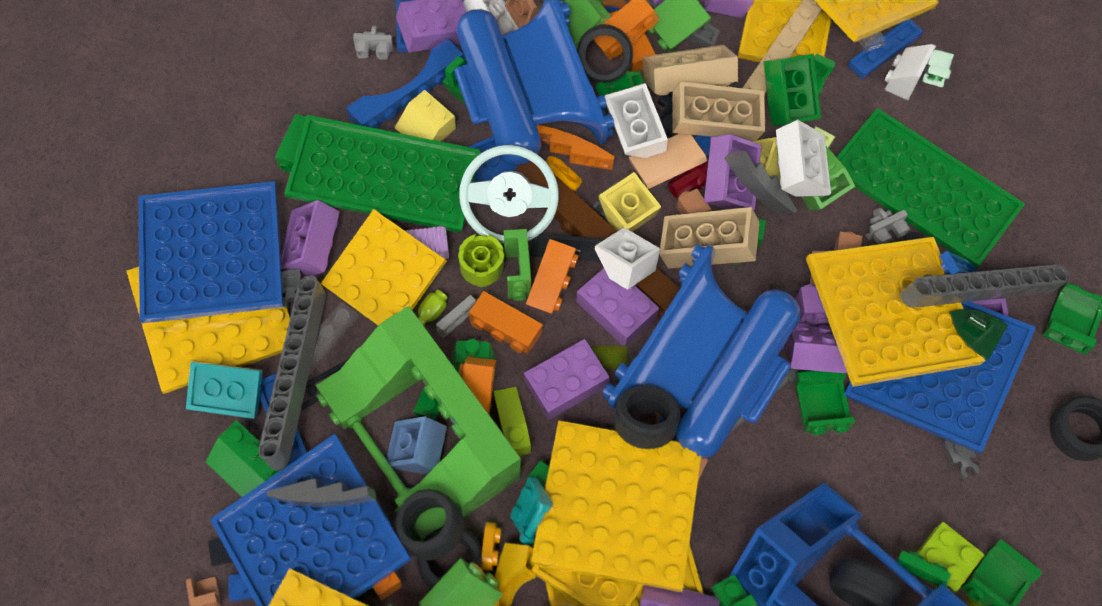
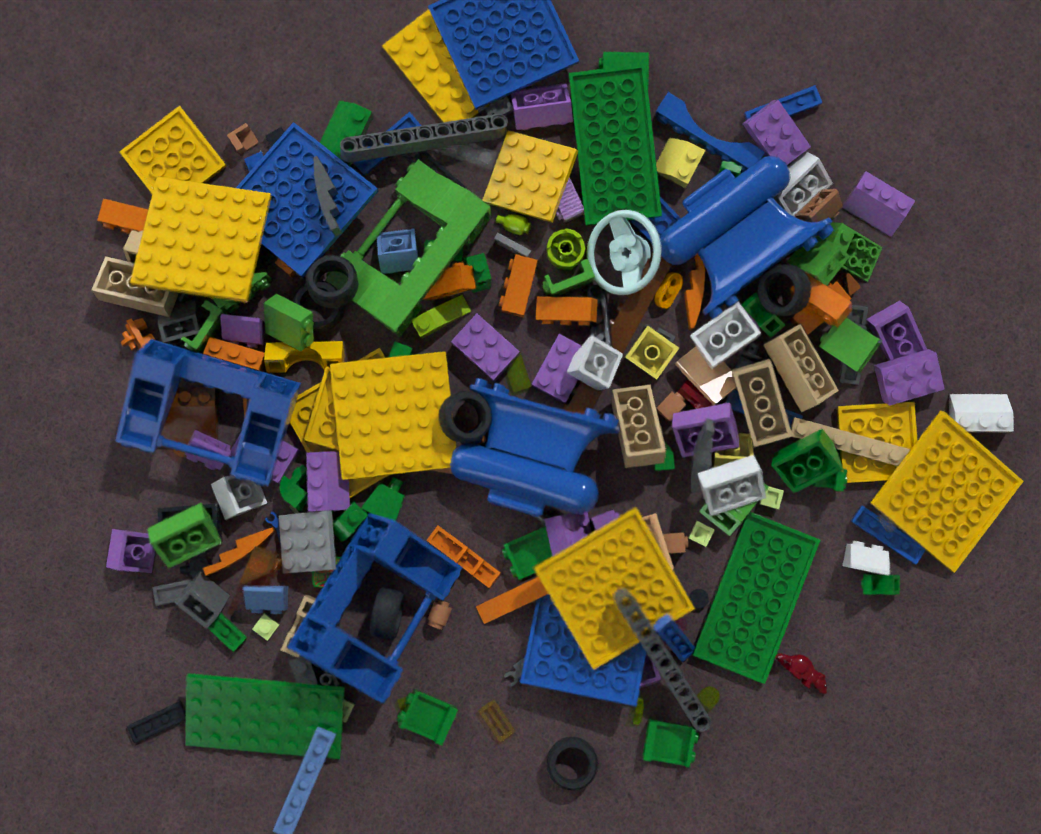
camera: 75 degrees right, 20 degrees up
(224, 389) = (395, 92): teal plate -> none
(373, 41) = (744, 99): light grey hips -> none
(489, 555) = (331, 332): light orange plate -> none
(530, 510) = (370, 352): teal plate -> none
(718, 551) = (386, 500): none -> green torso
(822, 470) = (463, 556): none -> orange slope
(843, 219) = (701, 533): none -> yellowish green plate
(874, 435) = (511, 600): none -> orange slope
(876, 529) = (439, 614): none -> nougat brick
(884, 222) = (698, 566): light grey hips -> none
(917, 566) = (410, 662): green plate -> none
(951, 551) = (431, 671): lime brick -> none
(978, 330) = (618, 660): dark green shield -> none
(999, 508) = (487, 706): none -> clear yellow tile
(1013, 163) = (802, 667): none -> dark red animal
(1027, 260) = (709, 696): none -> clear neon green tile
(1038, 343) = (638, 711): none -> clear neon green tile

